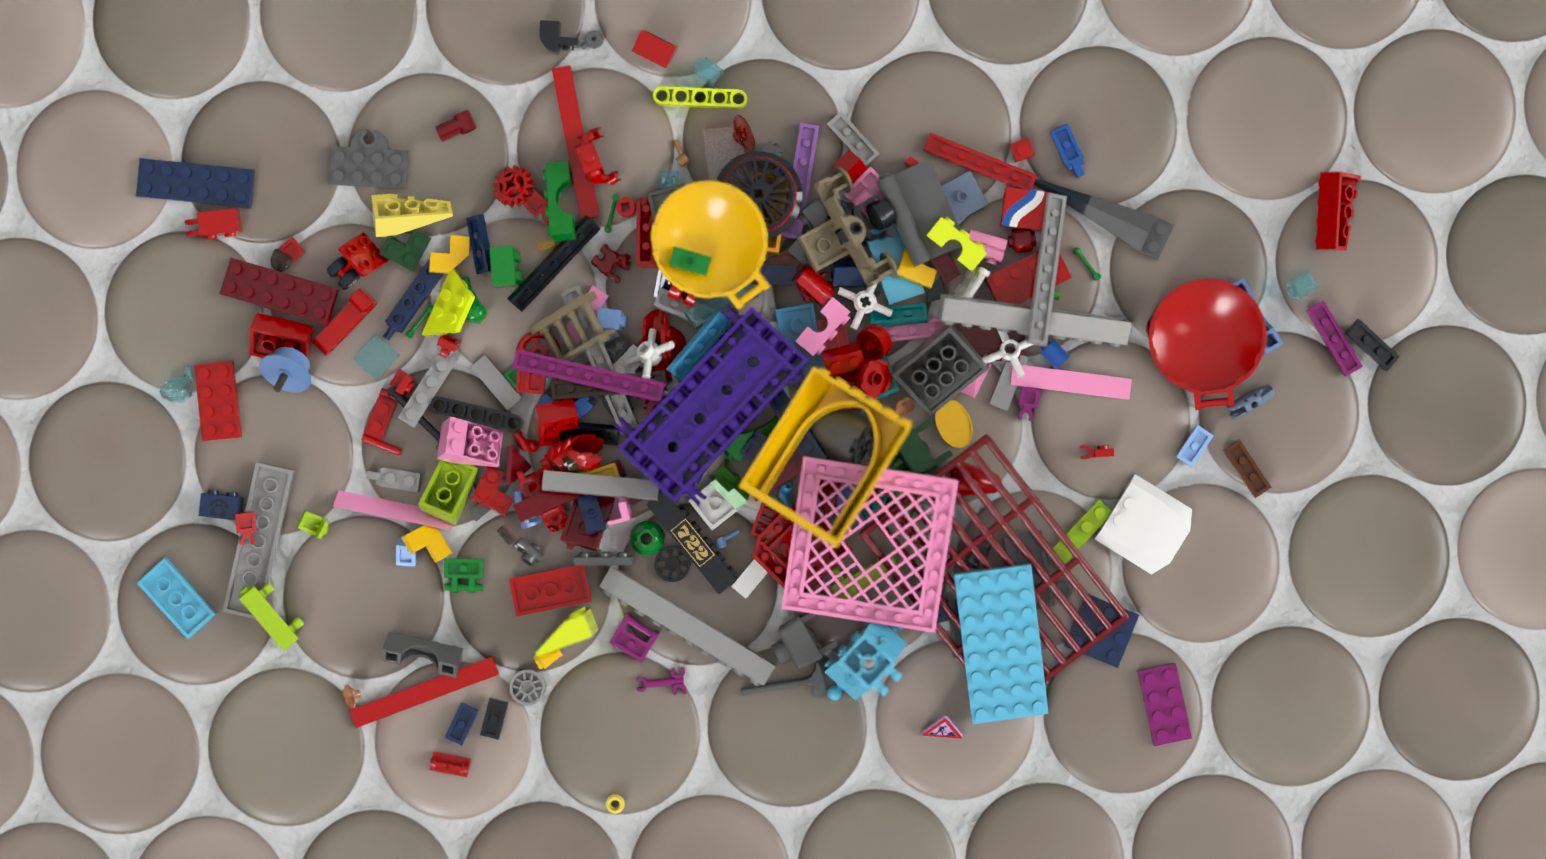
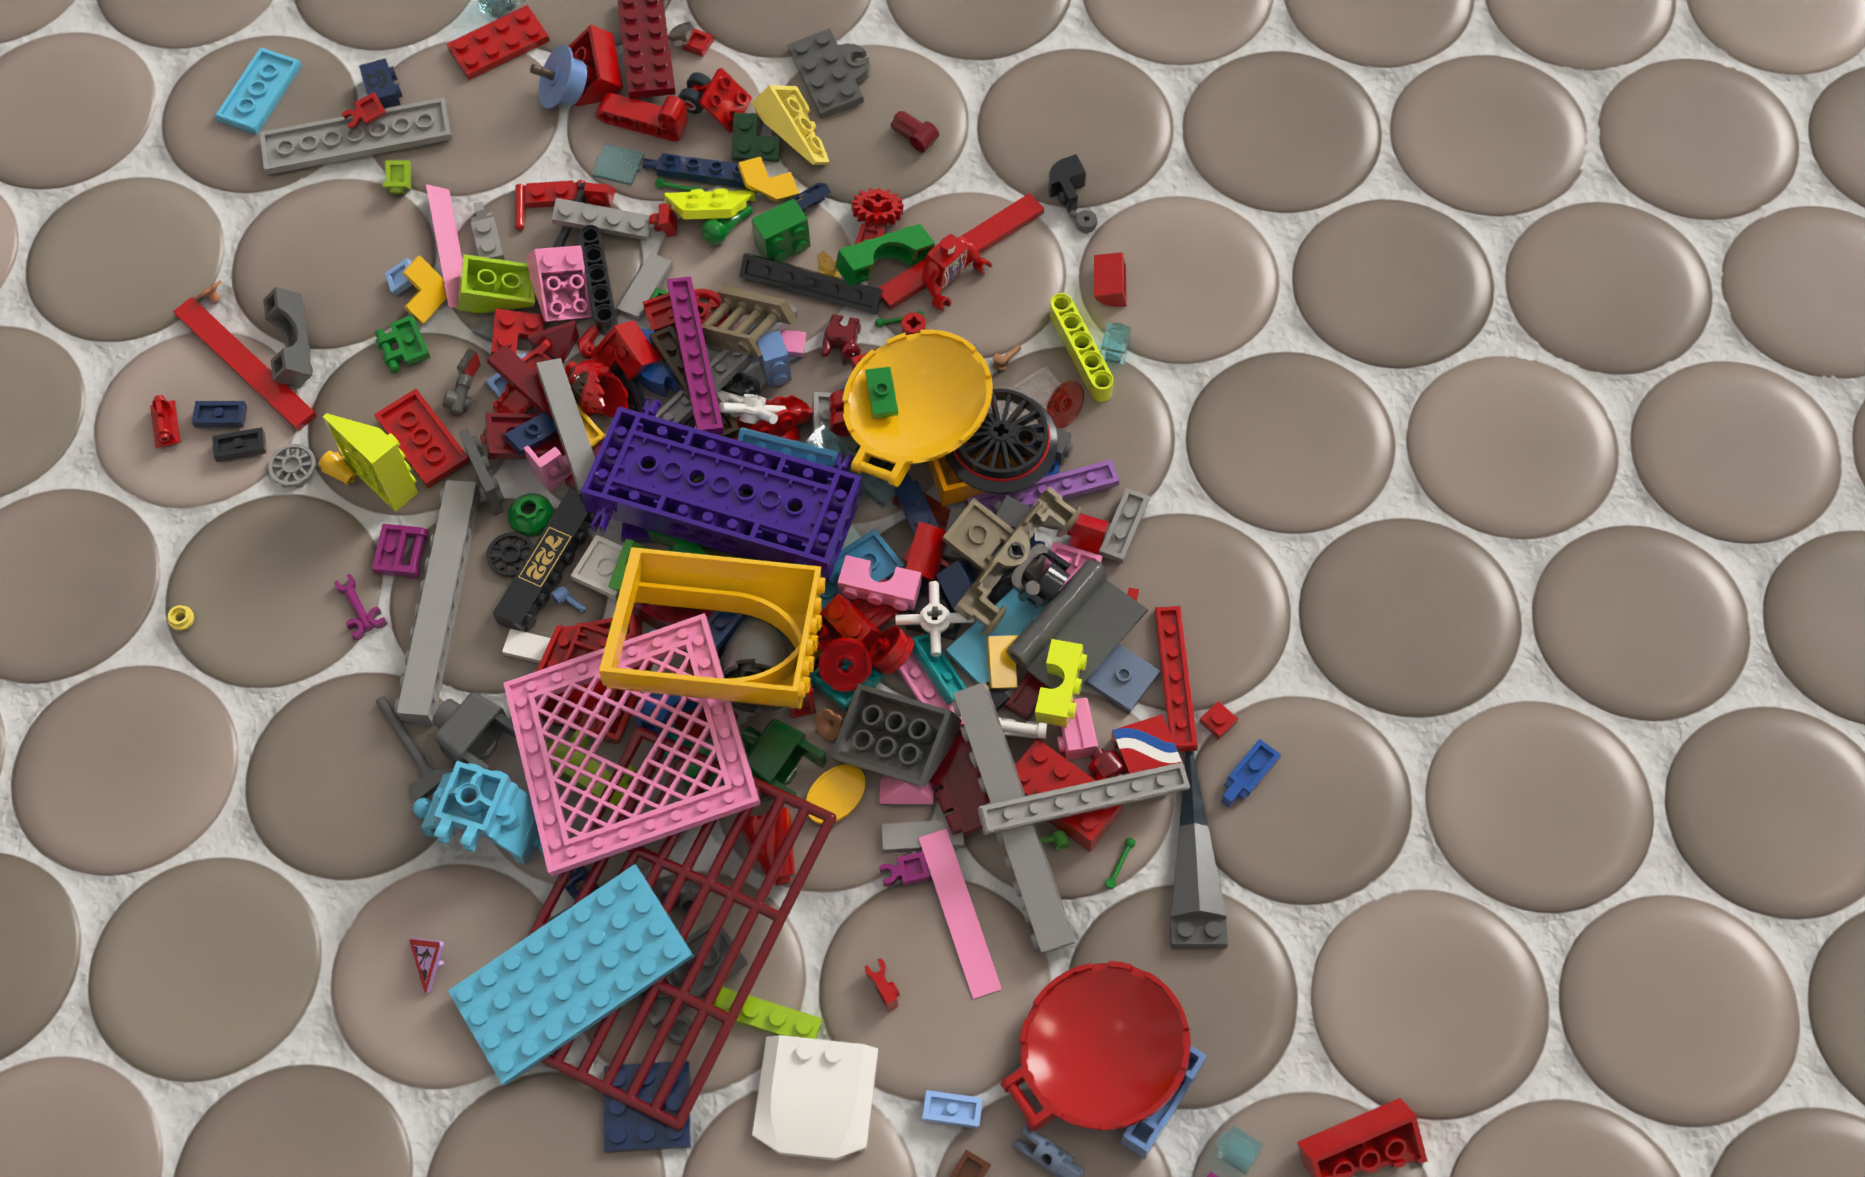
camera: 65 degrees right, 25 degrees down
(268, 617) = (270, 171): lime brick -> none
(1010, 357) = (954, 814): white bar -> none
(1054, 354) = (984, 872): blue brick -> none

